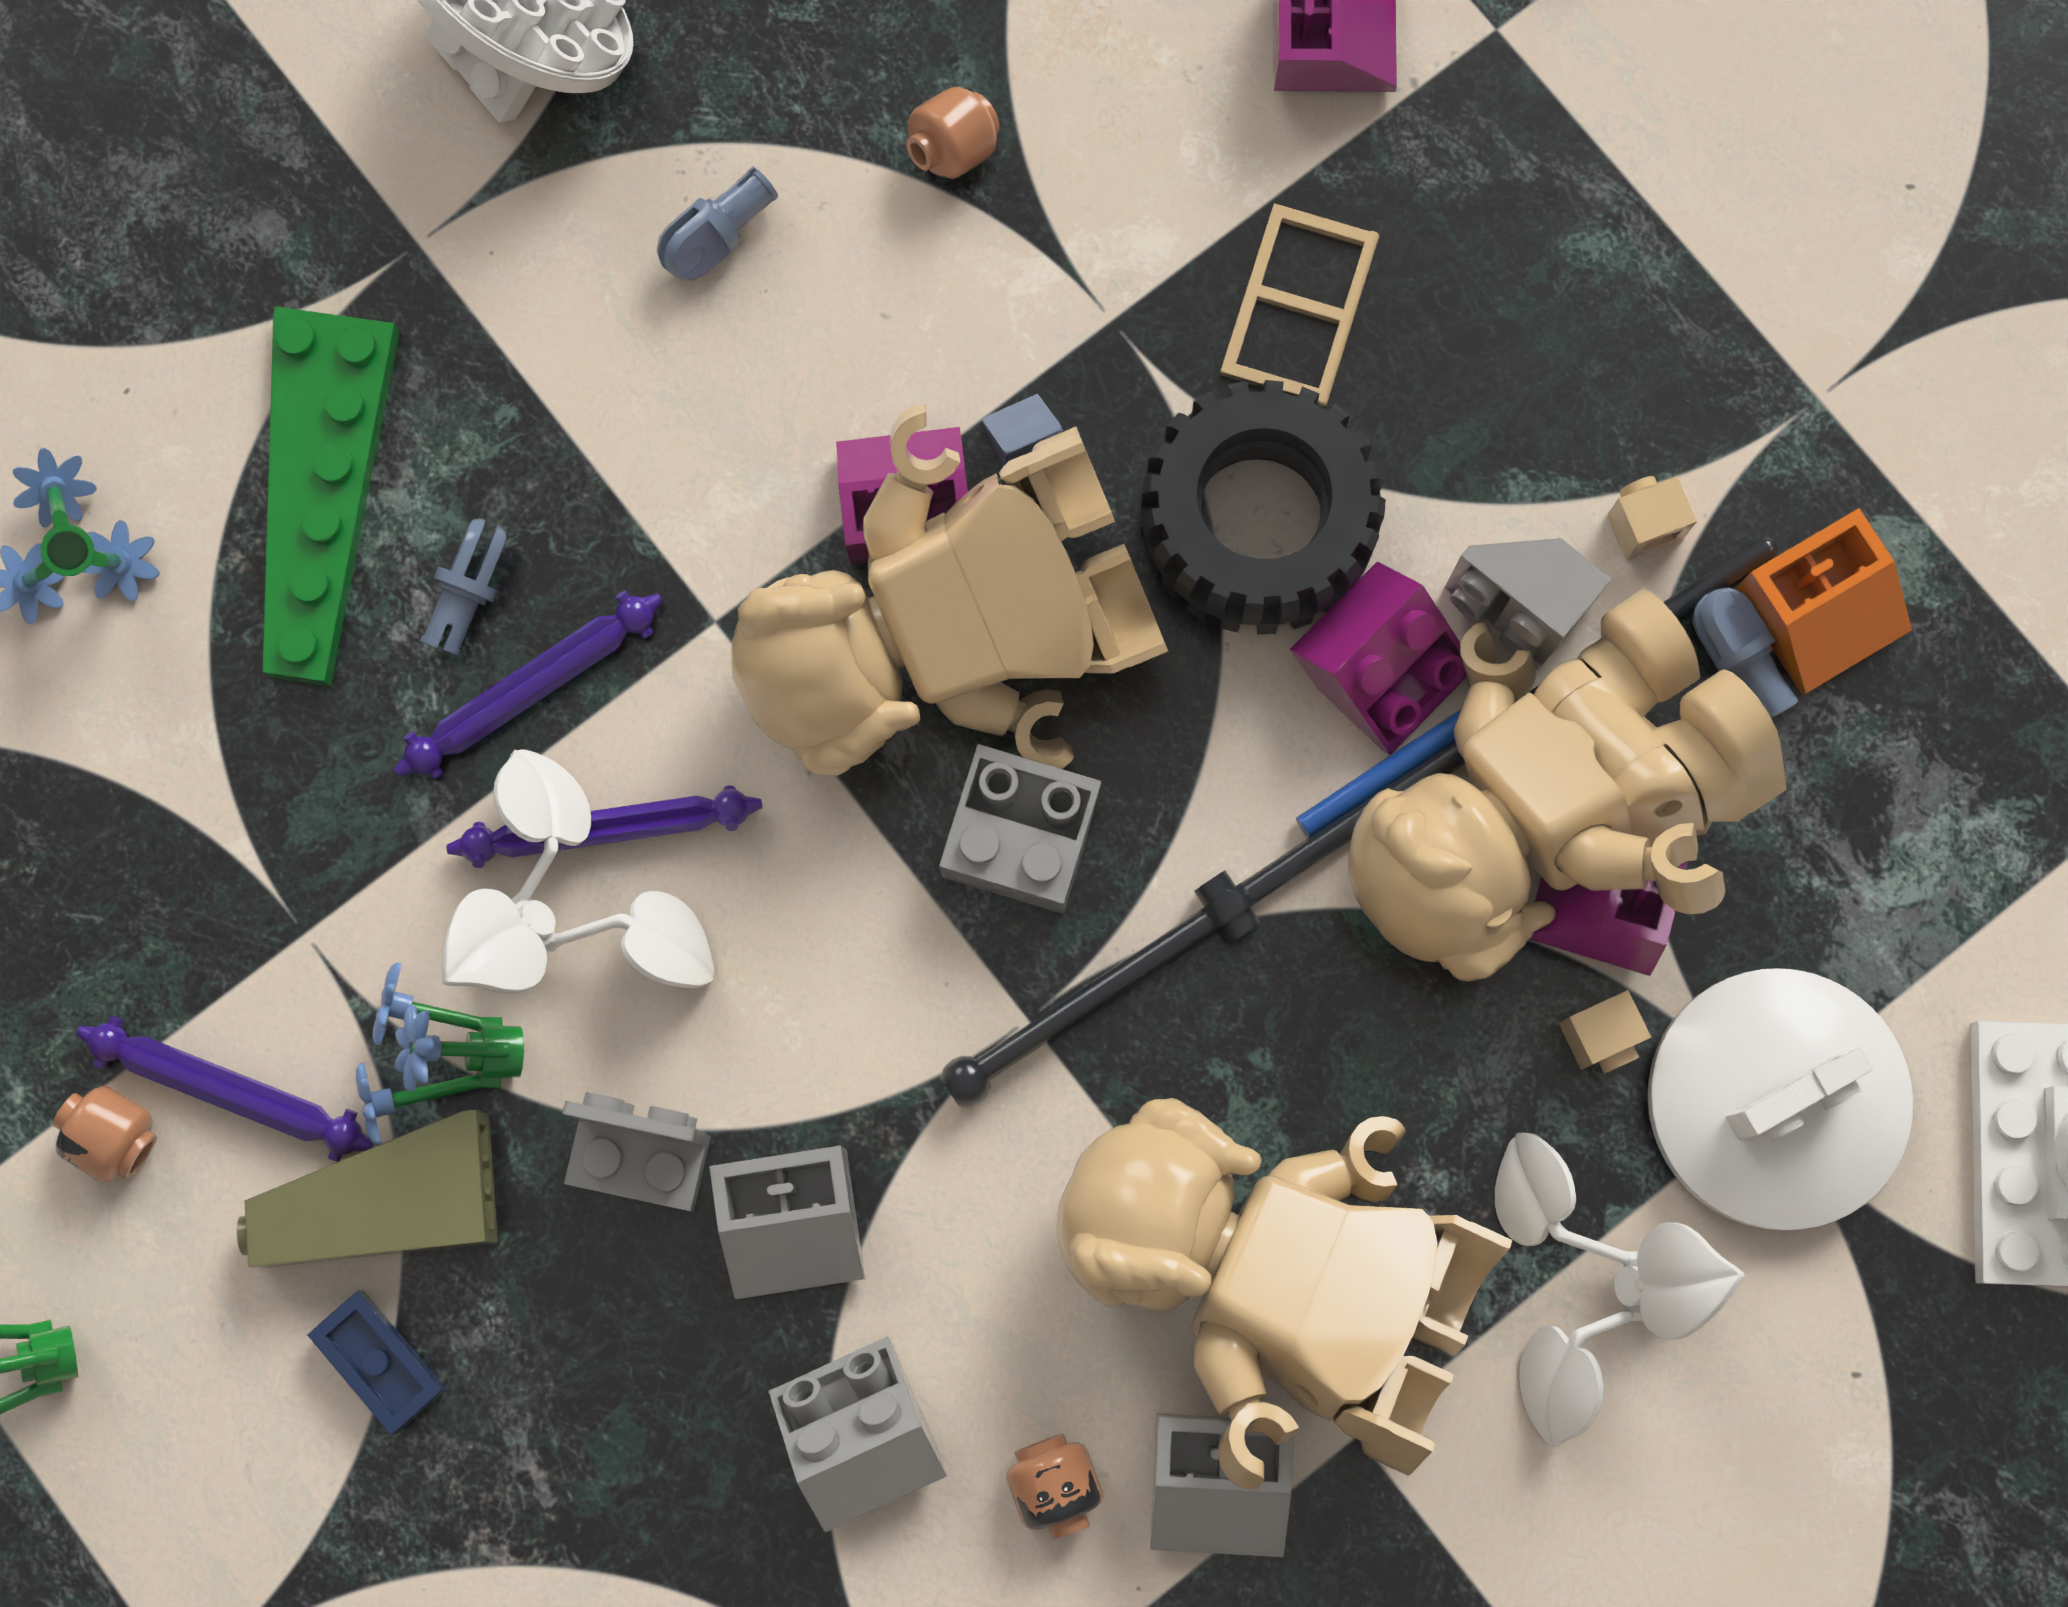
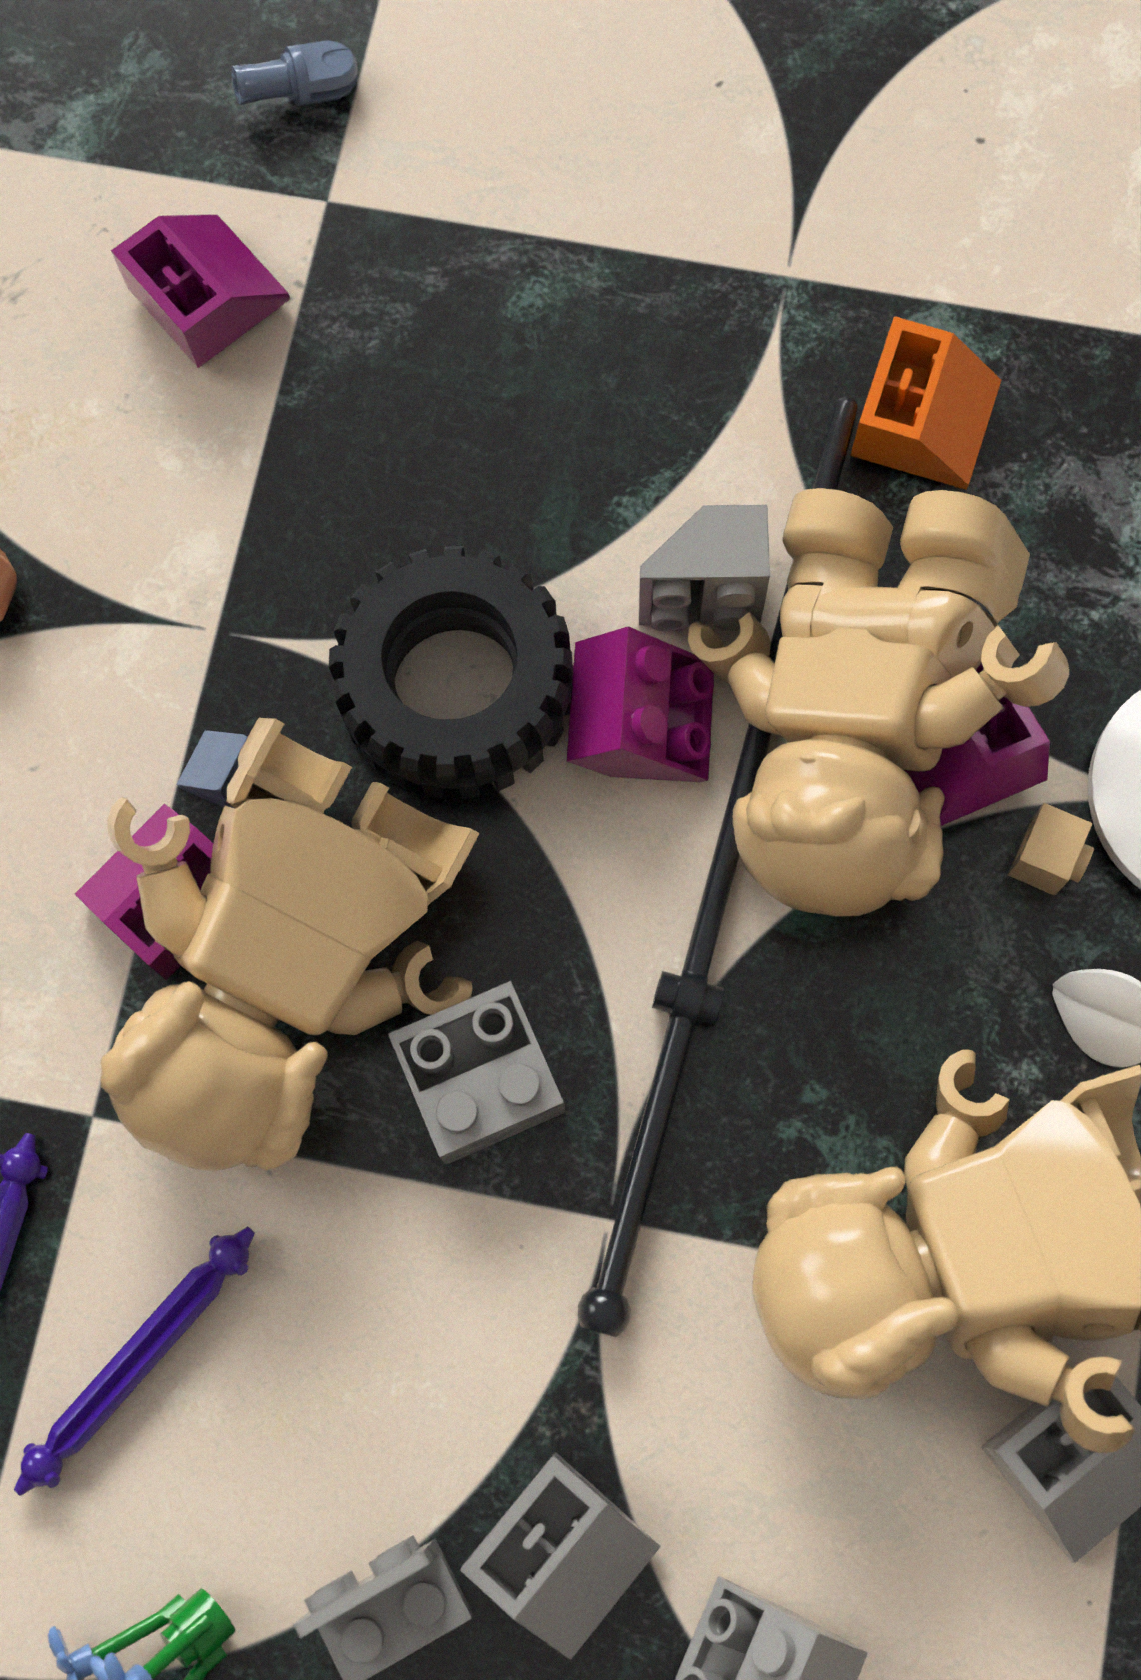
camera: 40 degrees left, 5 degrees down
(505, 941) = (131, 1538): white plant -> none
(1054, 1486) = (956, 1580): nougat head -> none
(1299, 304) = (348, 507): tan window -> none
(1378, 777) = (715, 801): blue bar -> none
(1650, 515) = (745, 448): tan plate -> none
(1742, 644) = (882, 480): sand blue arm -> none

